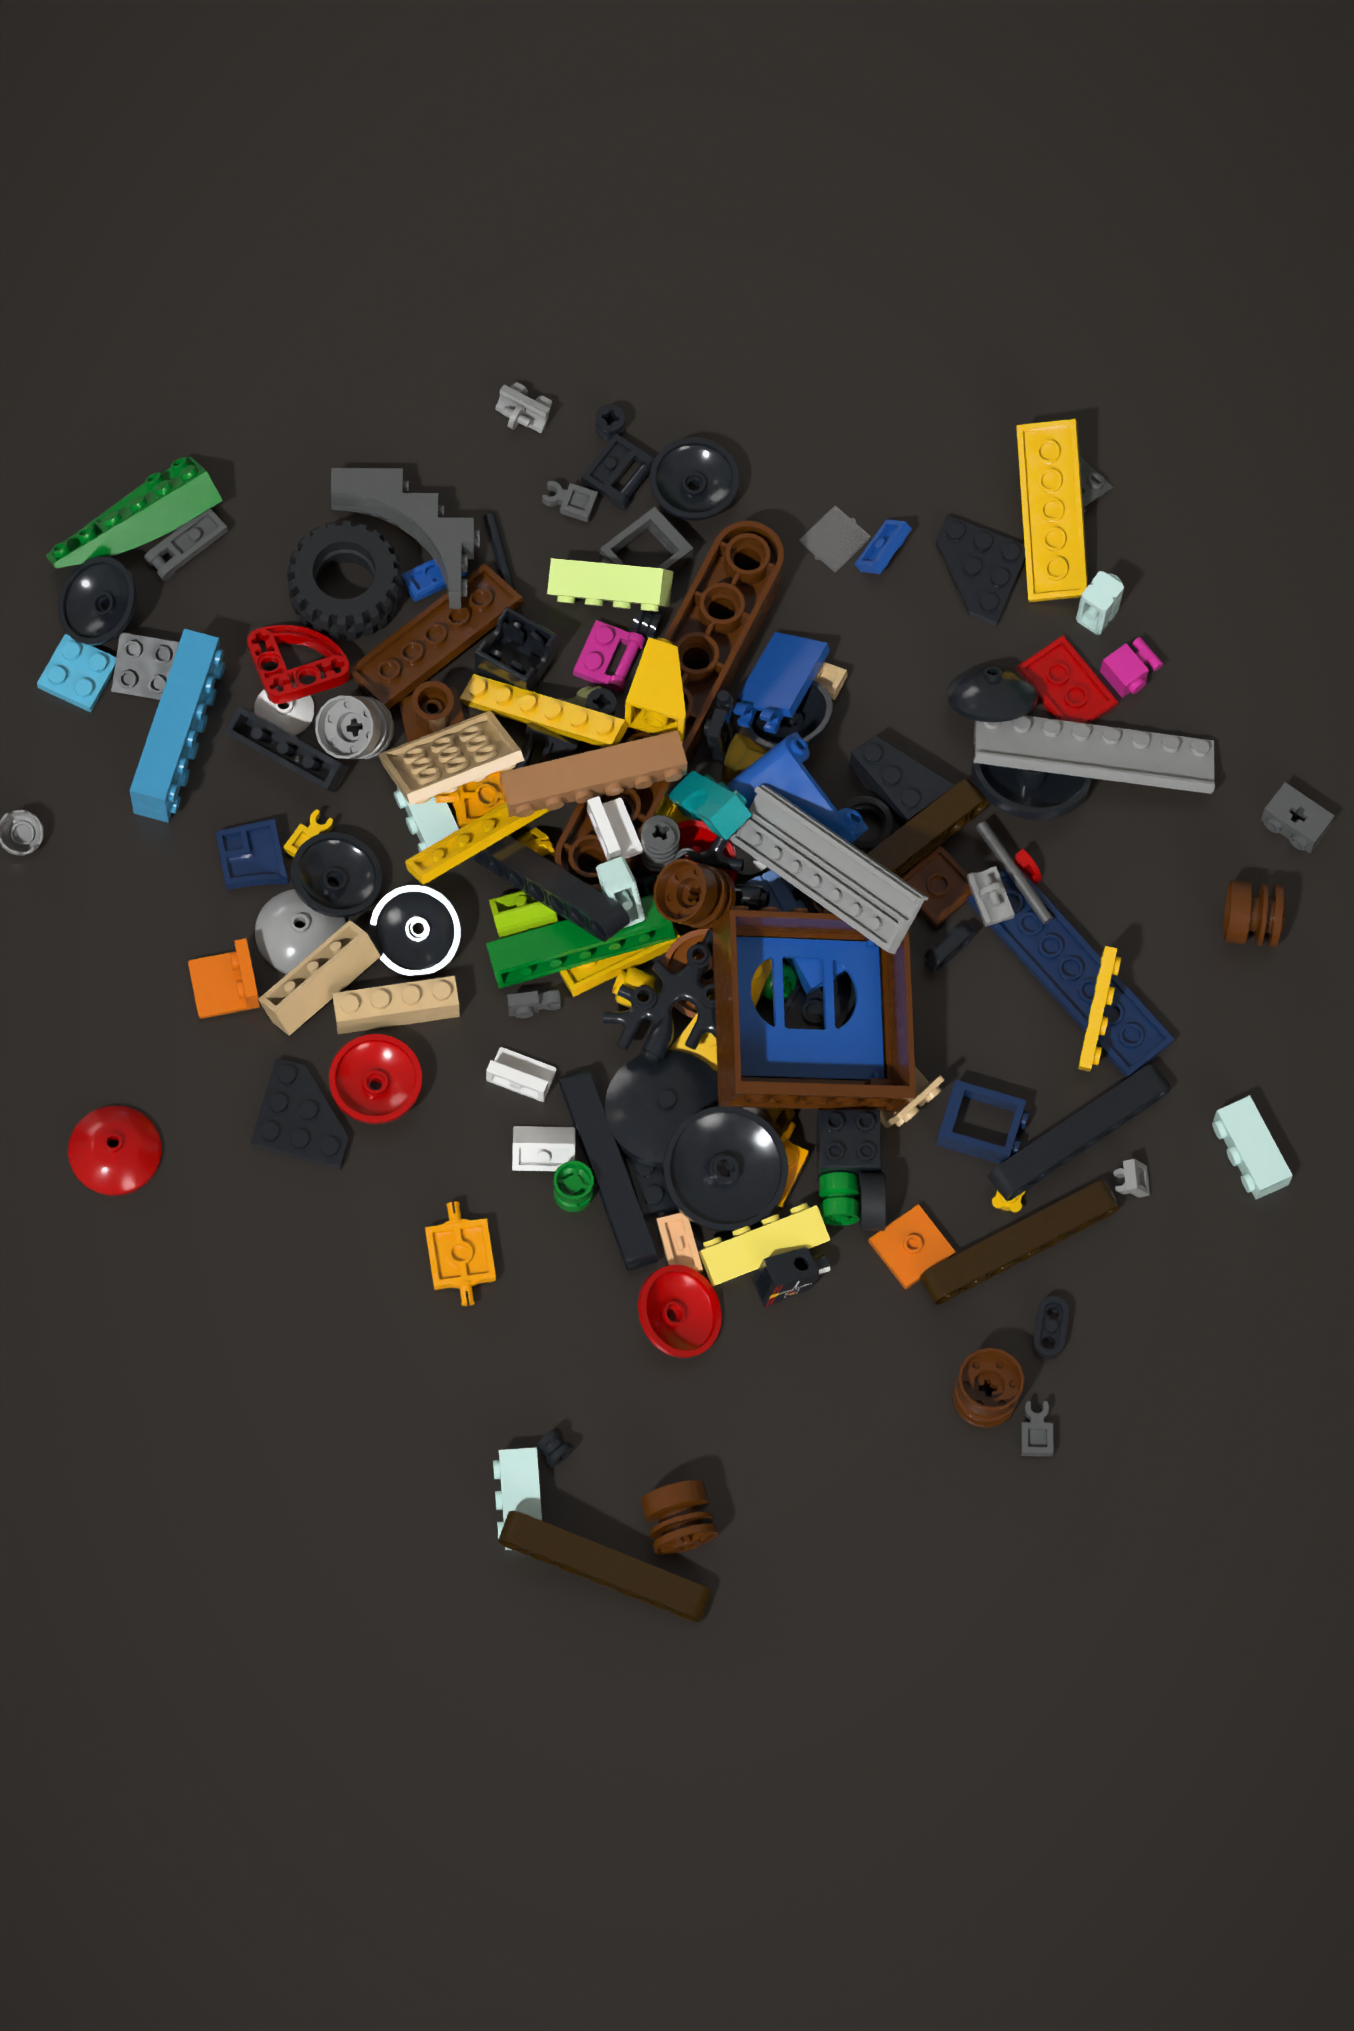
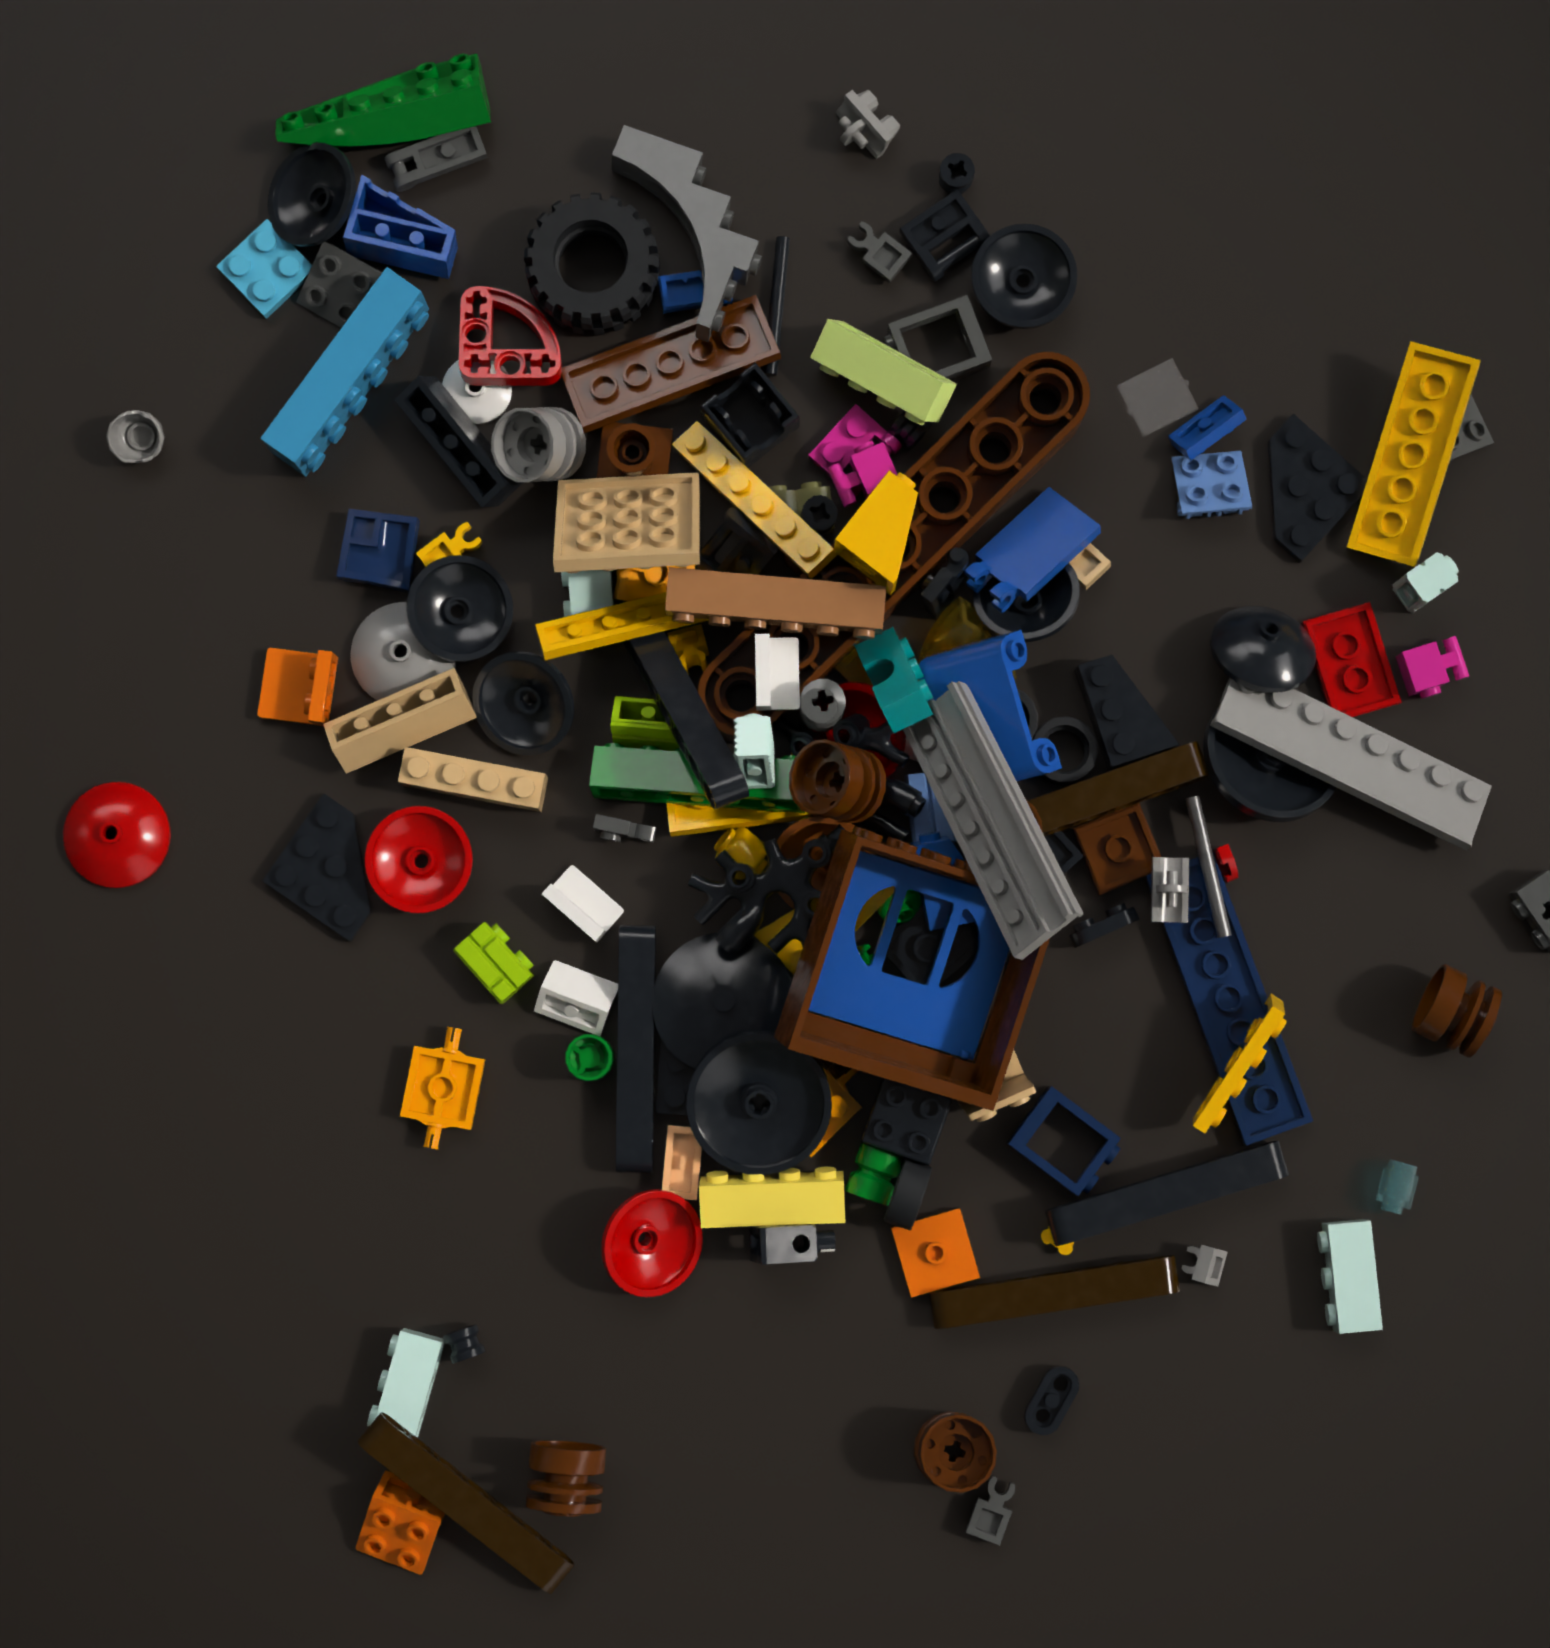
camera: 25 degrees right, 15 degrees up
(172, 606) = (396, 234): none -> blue wedge
(466, 1140) = (494, 962): none -> lime brick
(556, 1611) = (399, 1525): none -> orange bracket
(624, 661) = (869, 467): none -> dark pink brick
(903, 587) = (1211, 484): none -> medium blue hinge
(1261, 1067) = (1397, 1186): none -> clear light blue brick

